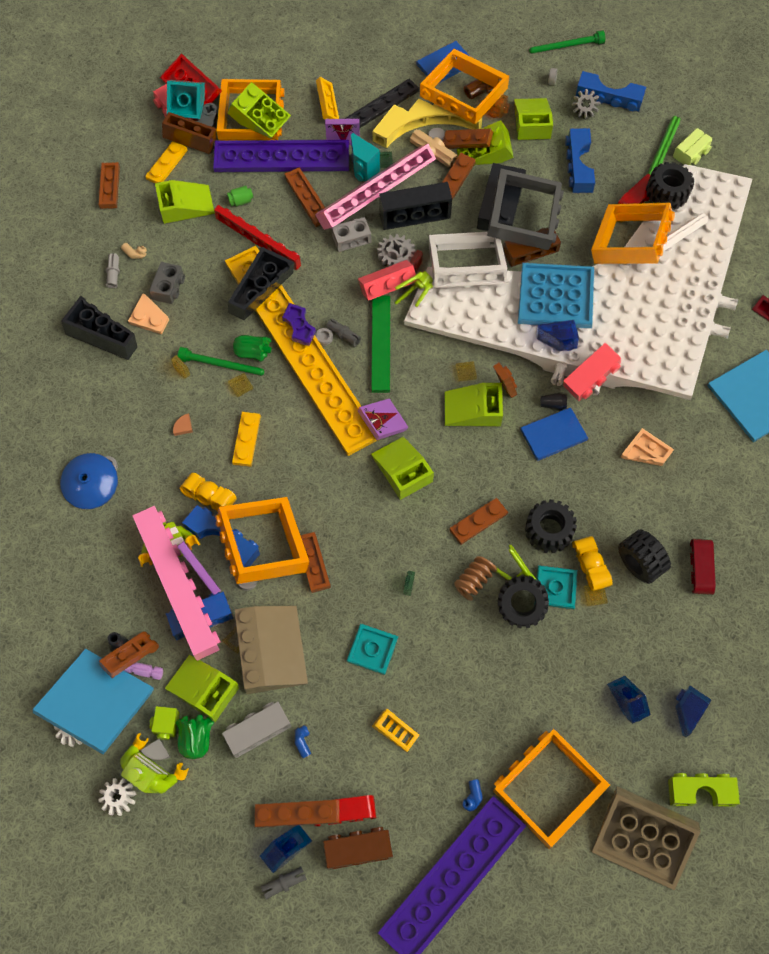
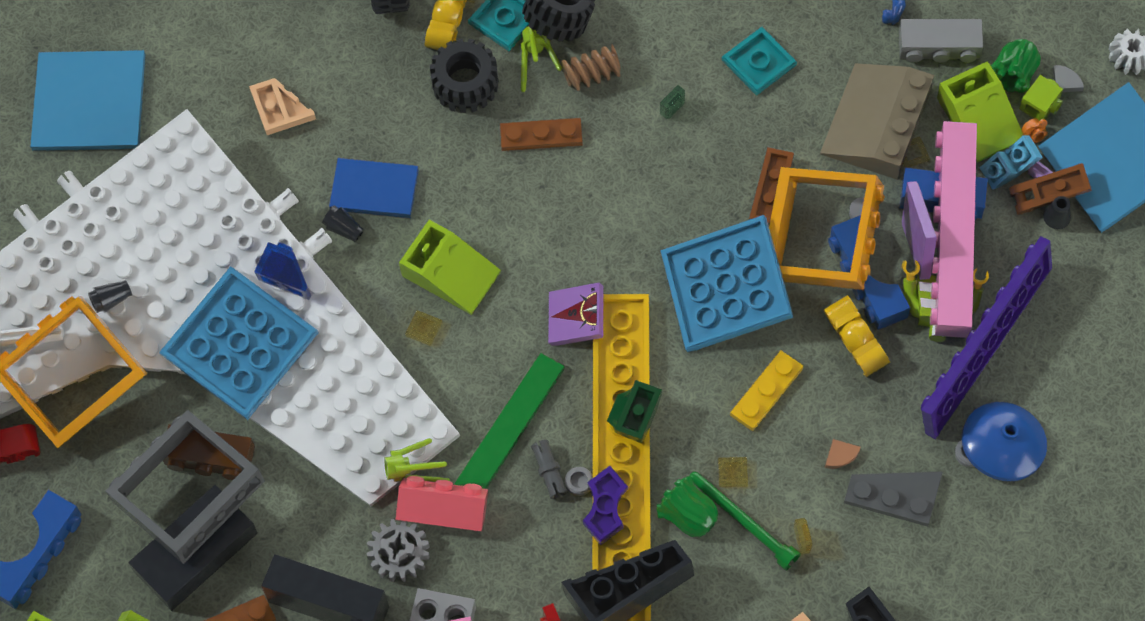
camera: 145 degrees left, 0 degrees up
(124, 535) = (986, 339): none -> dark purple plate
(136, 420) = (896, 494): none -> dark grey wing
(145, 773) = (1089, 54): lime torso -> none
(159, 695) = (1035, 129): none -> orange plate
(165, 662) = (1011, 163): none -> medium azure slope
(303, 481) = (726, 284): none -> dark azure tile
(312, 375) = (635, 411): none -> dark green slope
(403, 467) = (591, 240): lime slope -> none
(417, 260) = (381, 515): clear red tile -> none
(466, 275) = (376, 450): white window -> none
(506, 379) = (392, 260): dark orange plate -> none
(592, 372) = (283, 199): coral brick -> none
(645, 276) = (108, 296): none -> black cone

